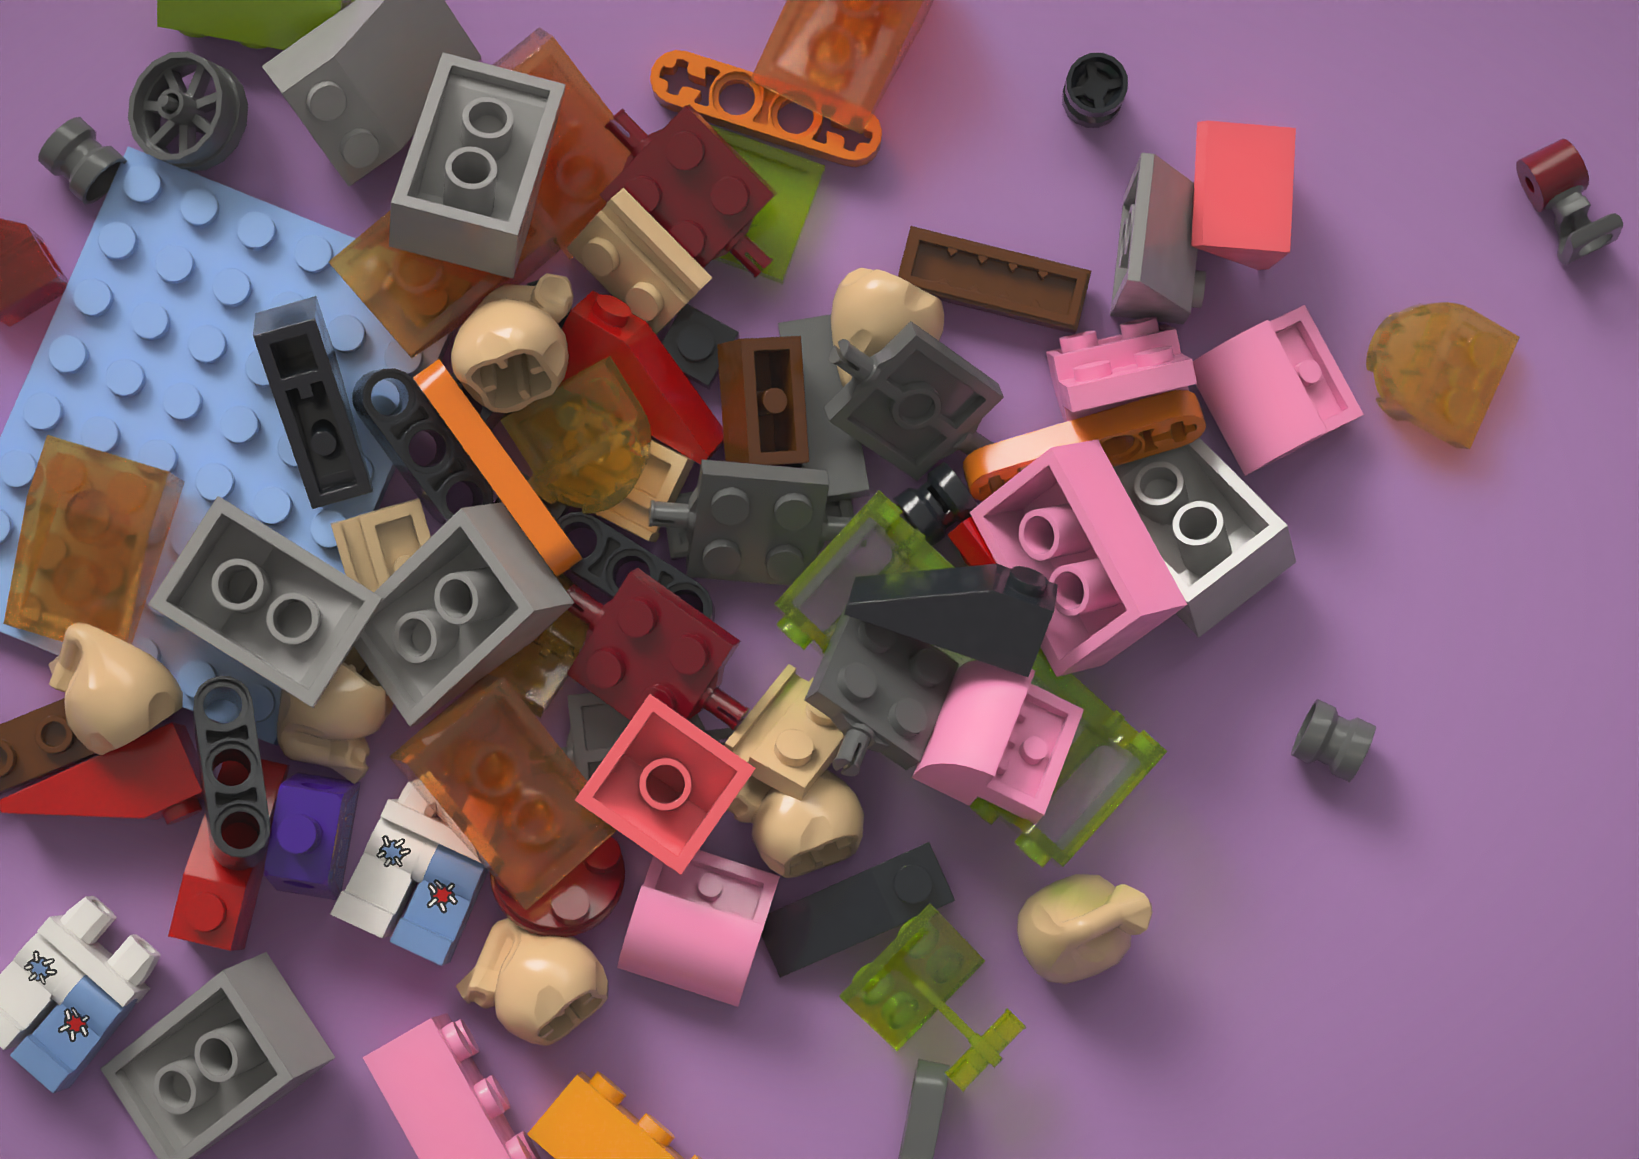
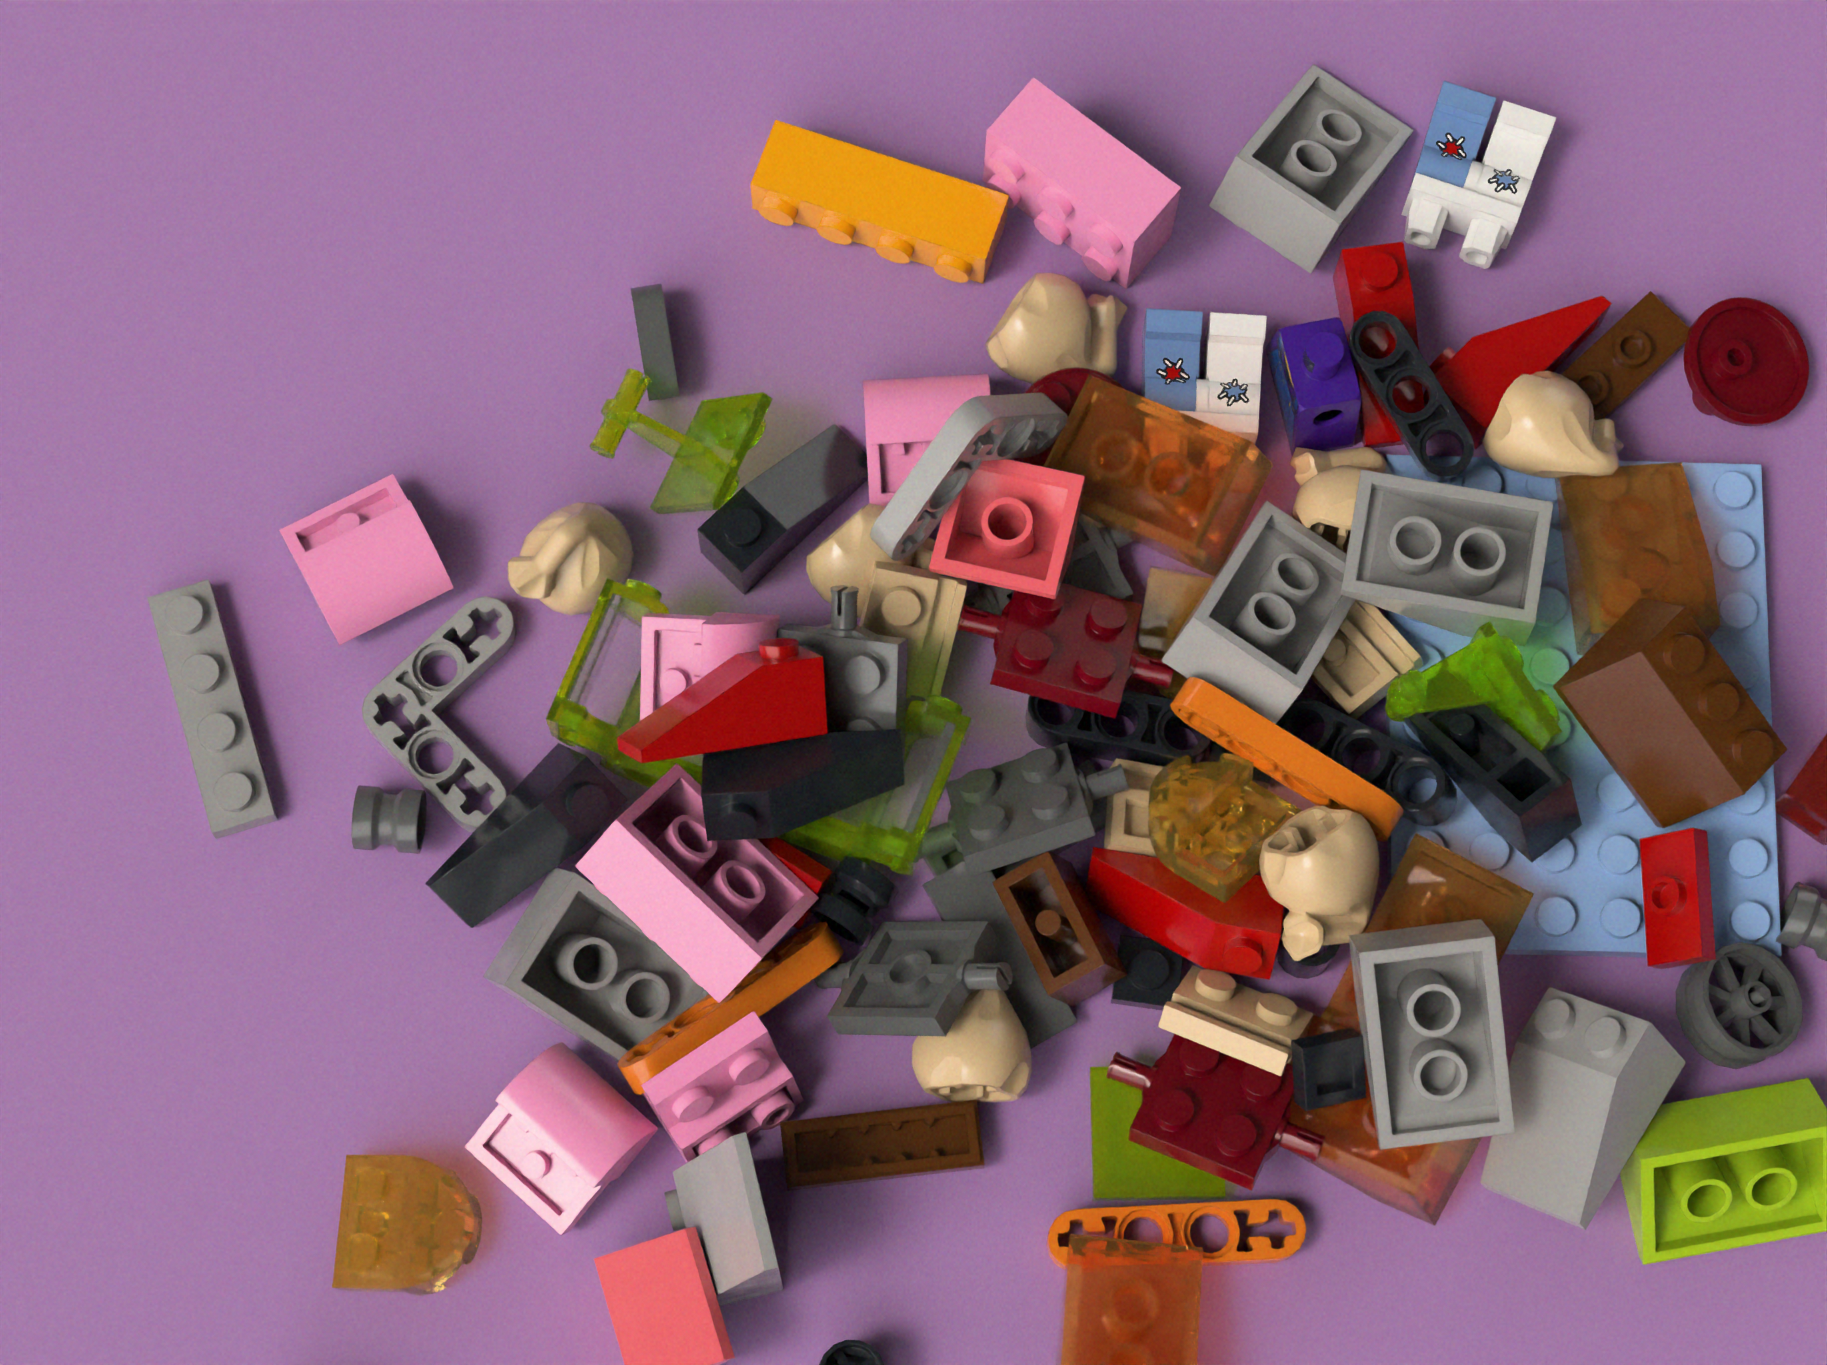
camera: 155 degrees right, 10 degrees down
(133, 371) = (1669, 713): none -> reddish brown slope
(200, 216) = (1677, 898): none -> red plate
(291, 474) = (1480, 674): none -> clear neon green plate
(578, 178) = (1328, 1069): none -> black plate
(684, 854) = (976, 432): none -> light grey beam
(990, 685) = (737, 705): none -> red slope
(1209, 674) = (527, 835): none -> black slope
(1260, 846) = (428, 701): none -> light grey beam
(1274, 1003) = (366, 559): none -> bright pink brick
(1461, 916) = (212, 709): none -> light grey plate

